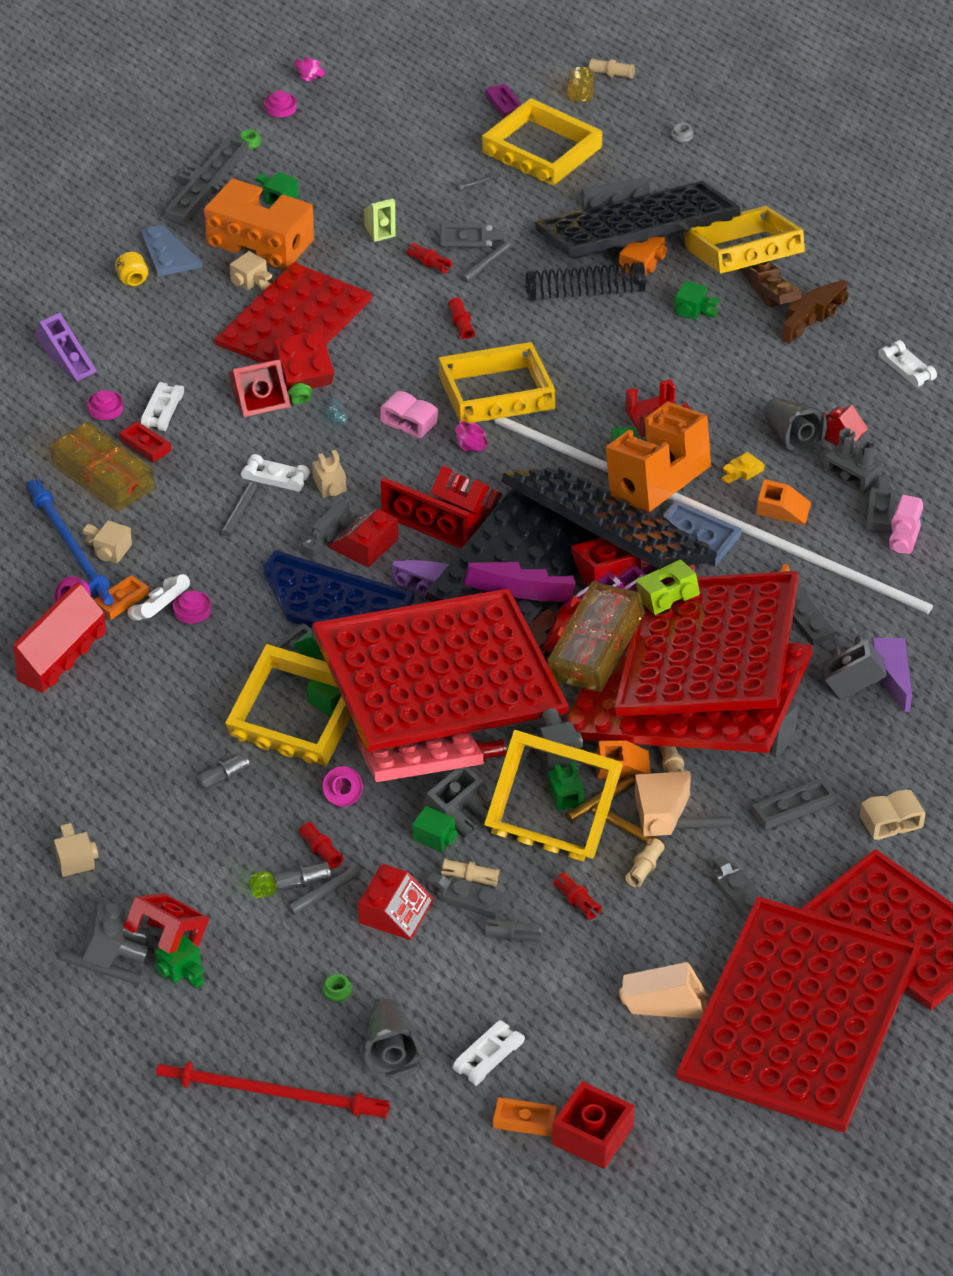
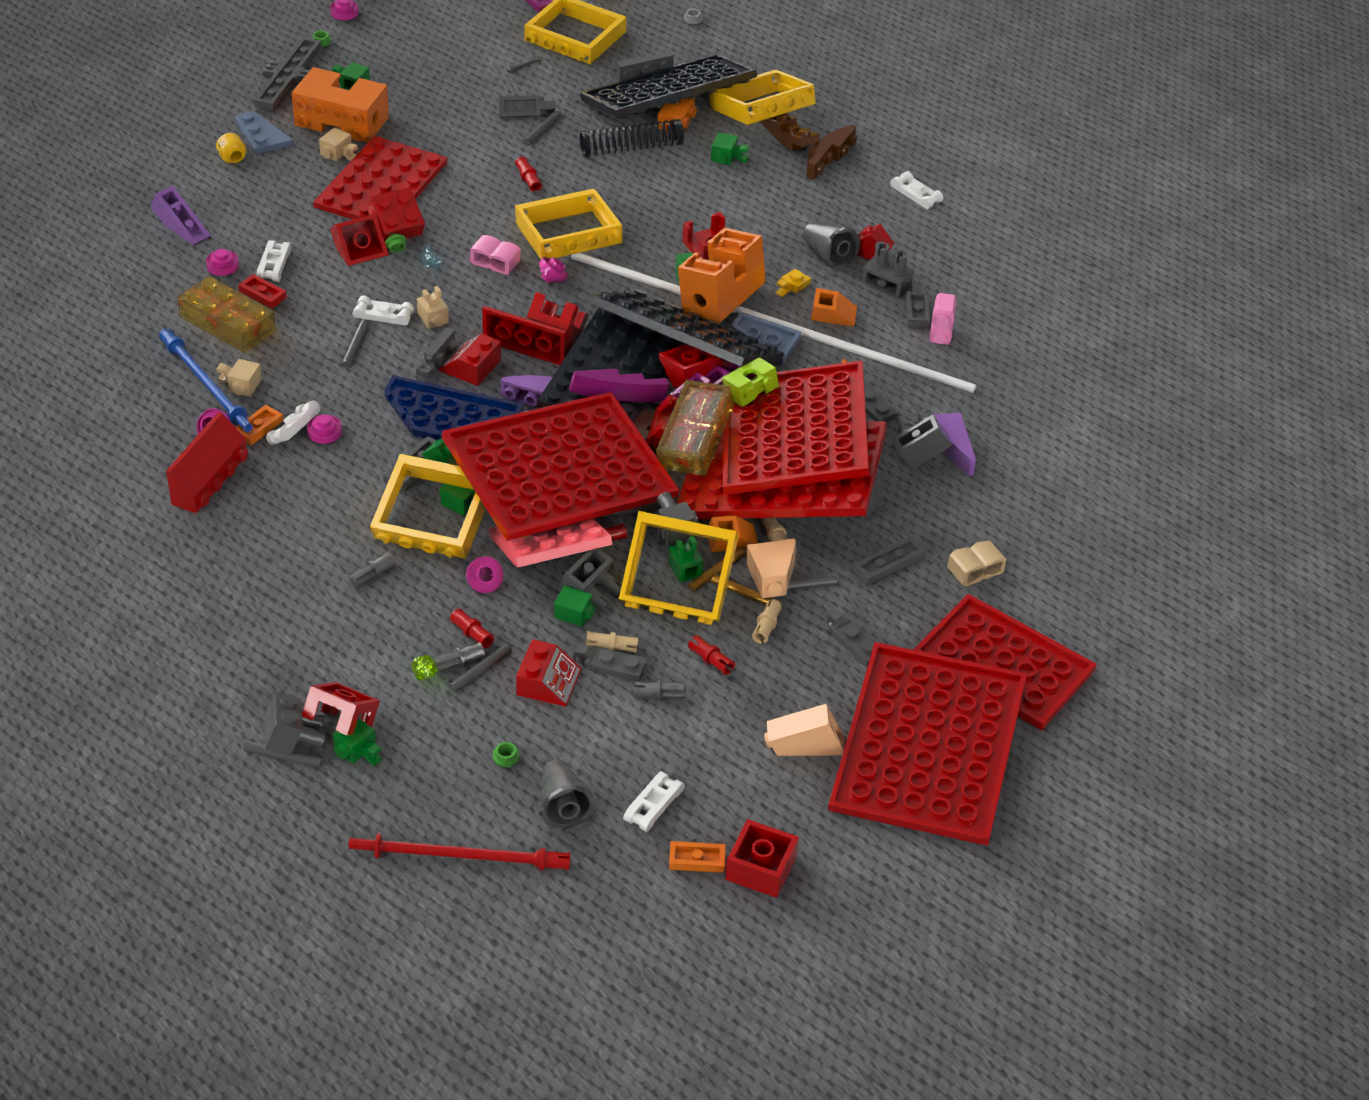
camera: 10 degrees left, 0 degrees up
(74, 851) = (245, 651): tan brick -> none
(380, 220) = (446, 96): yellowish green slope -> none
(429, 258) = (492, 126): red pin -> none

